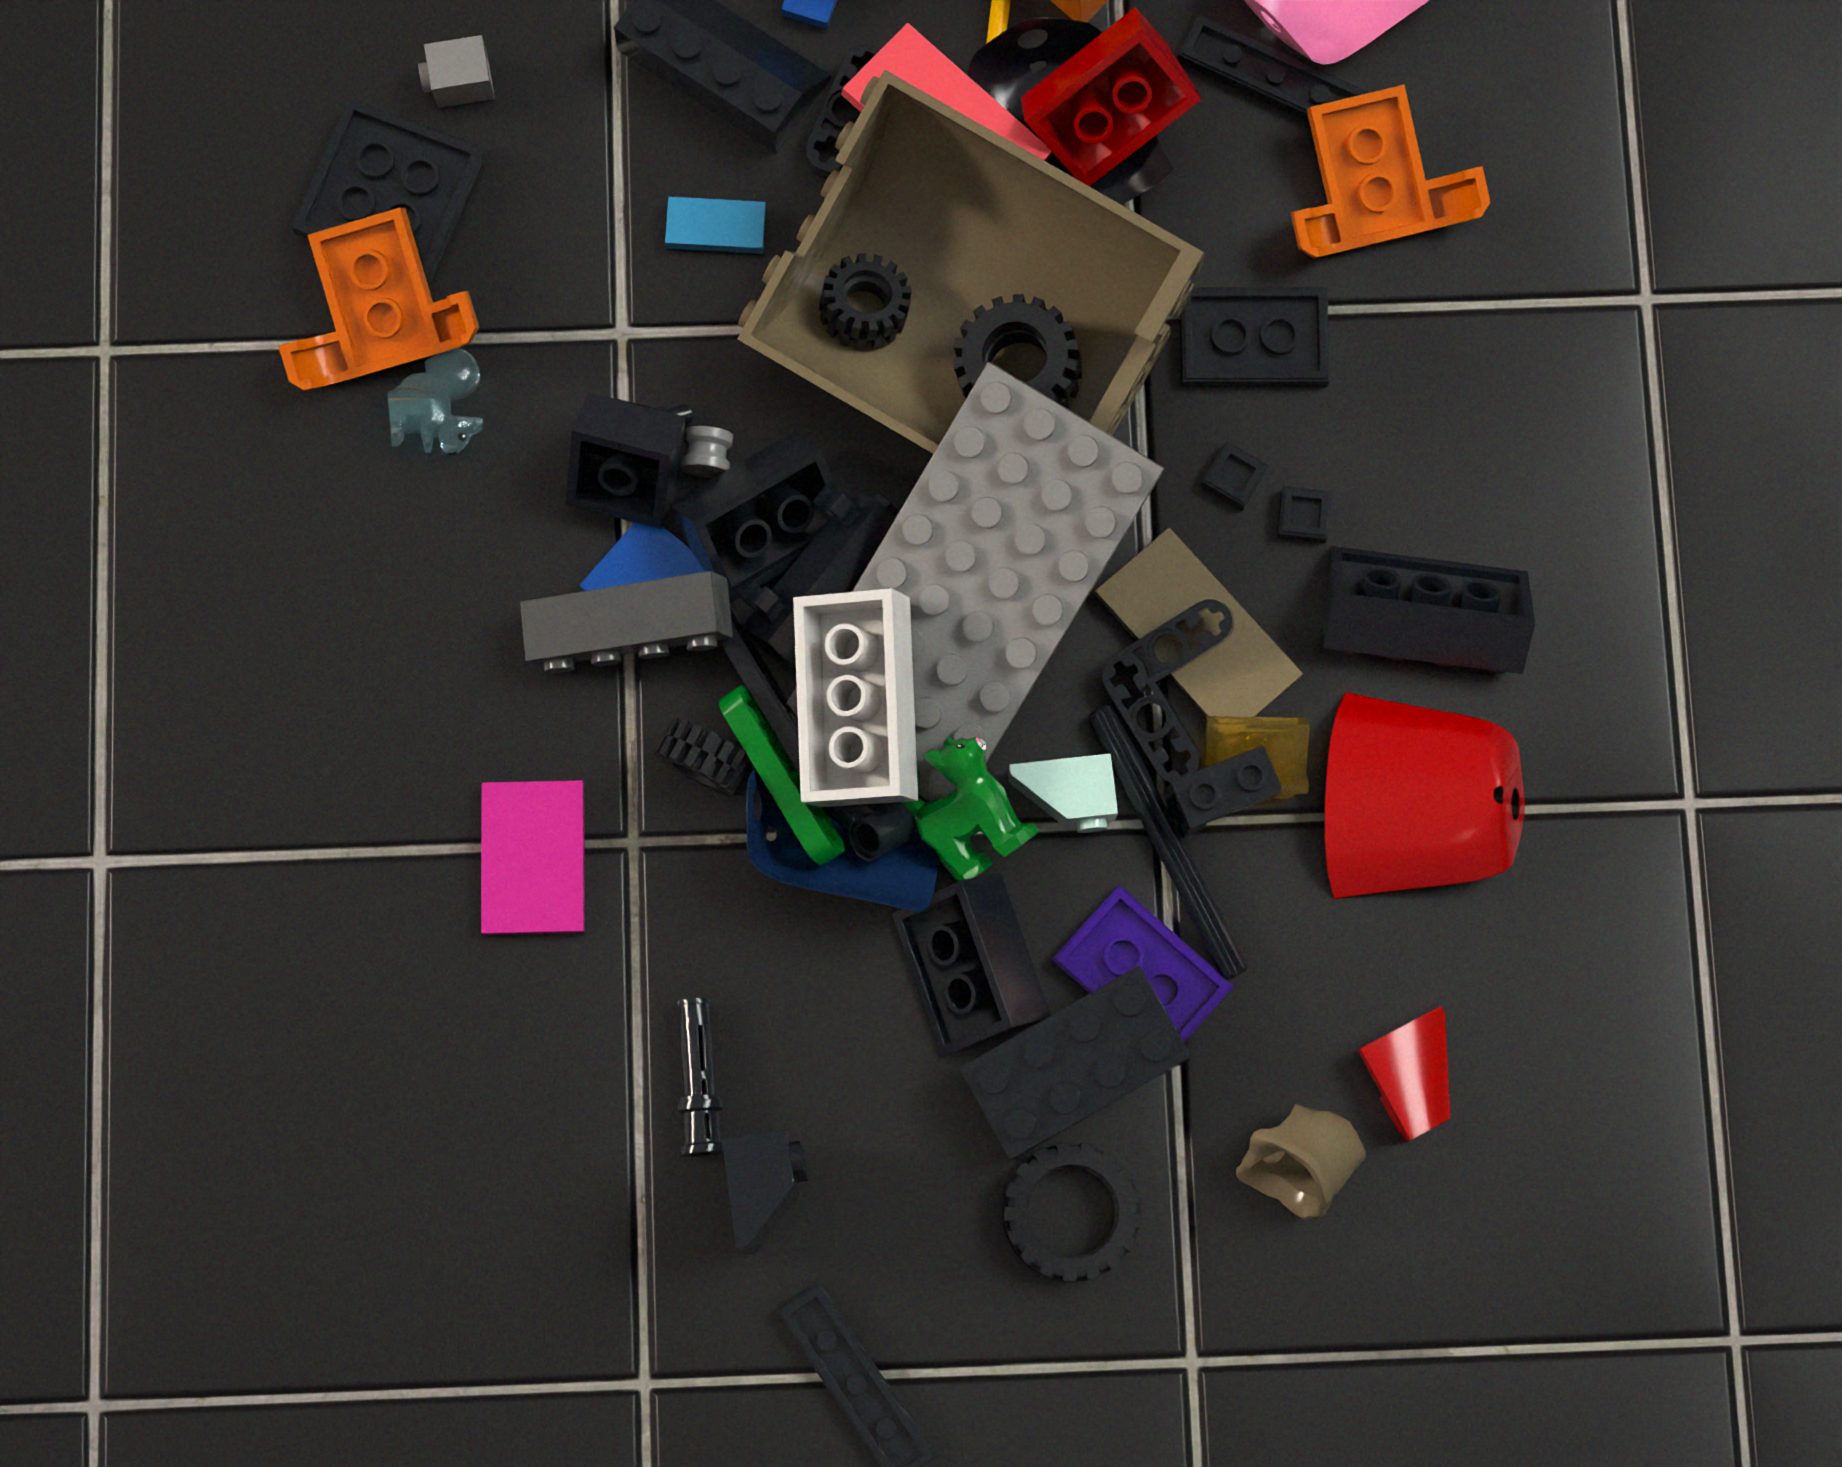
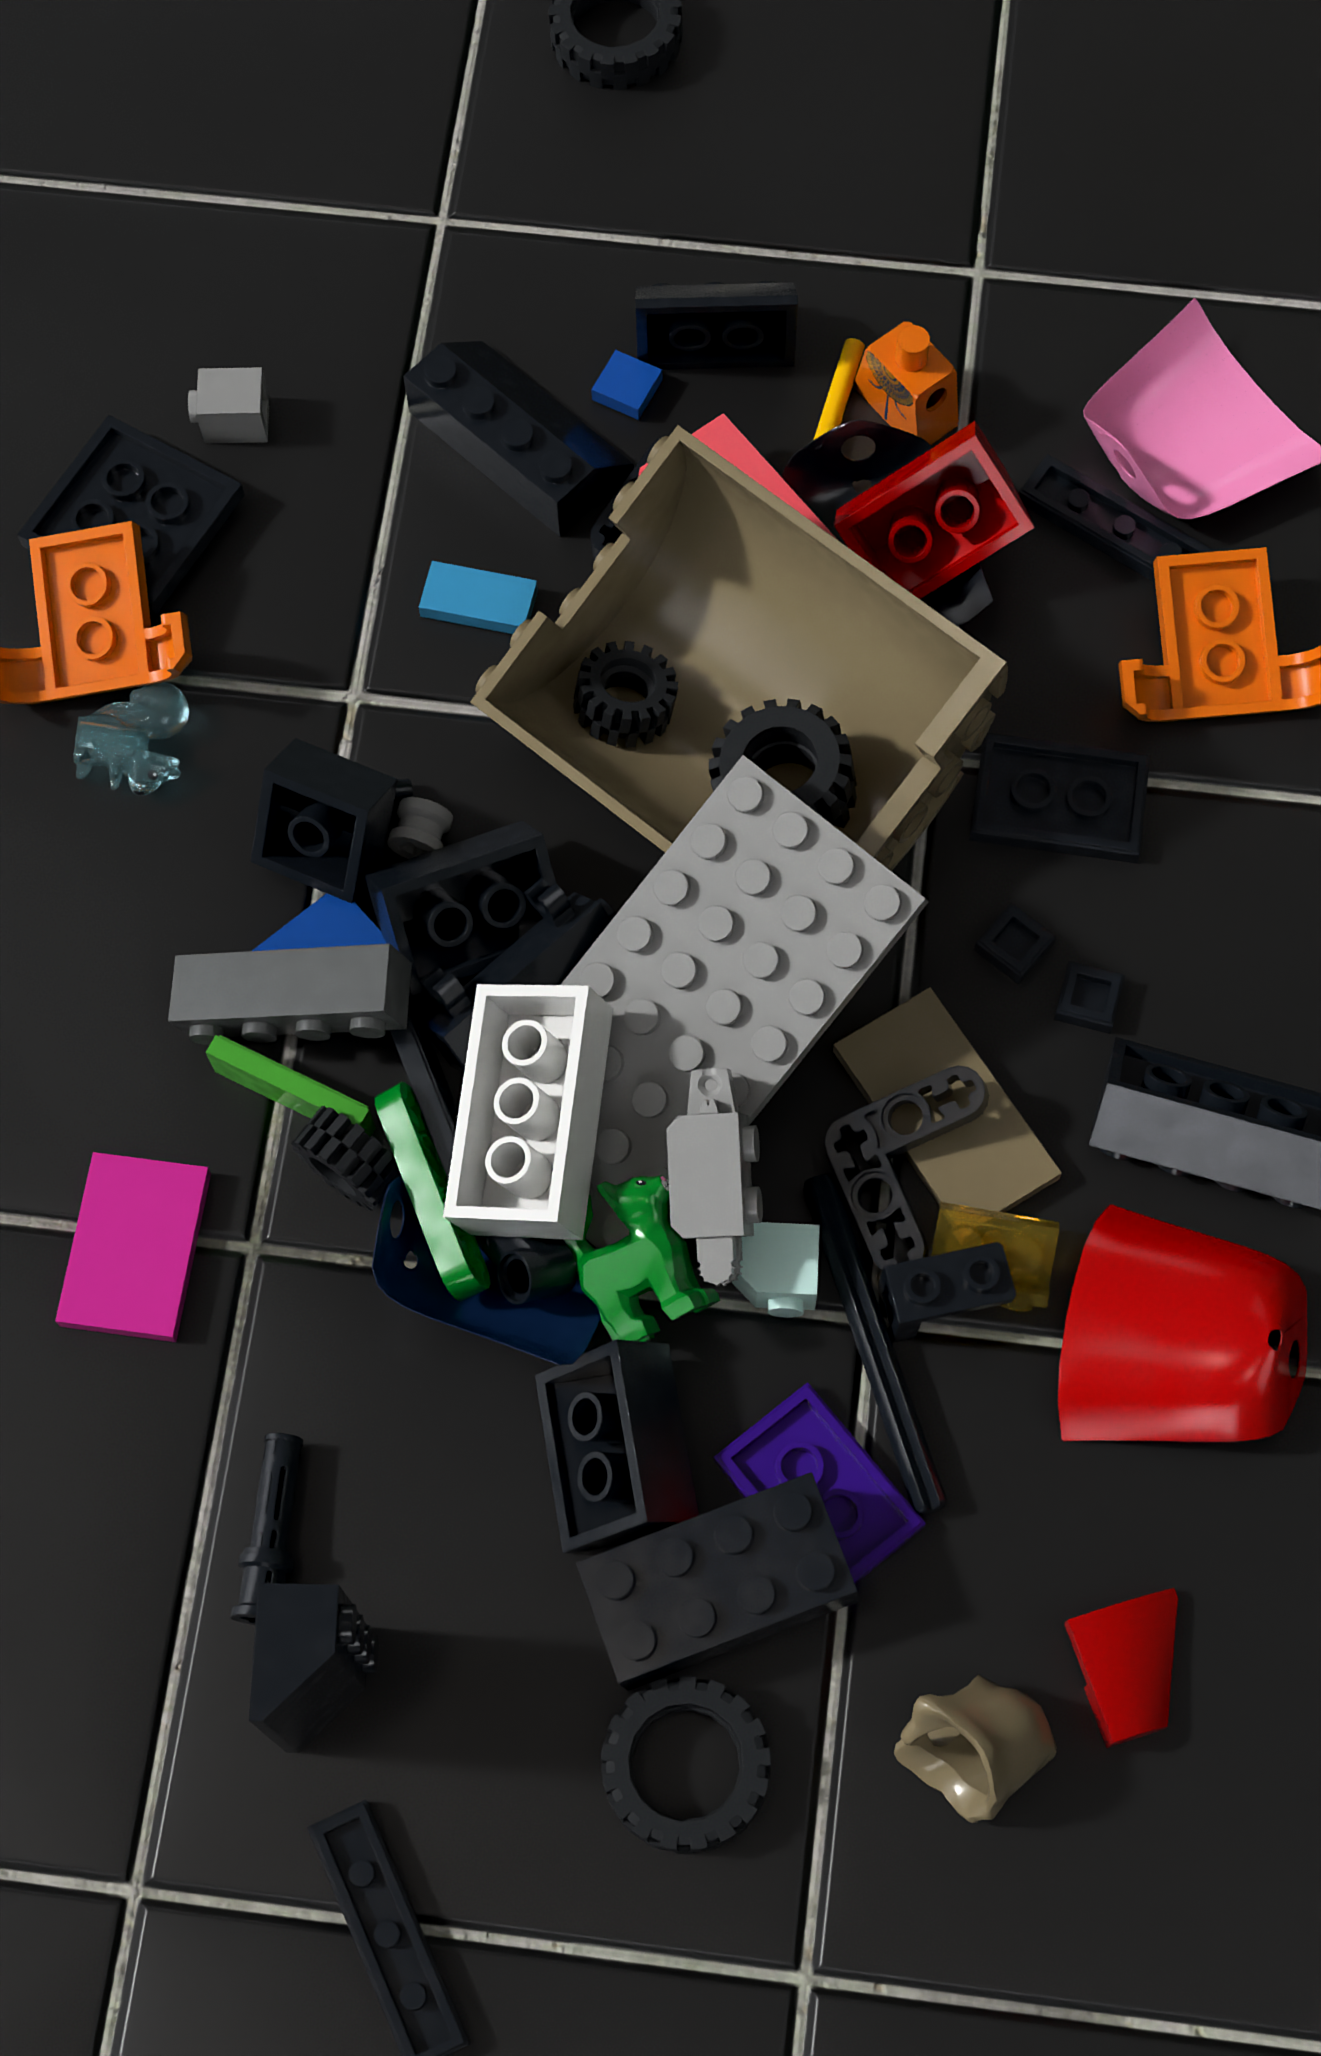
camera: 15 degrees right, 10 degrees down
(636, 699) = (282, 1083): none -> bright green tile
(1017, 729) = (712, 1175): none -> light grey hinge

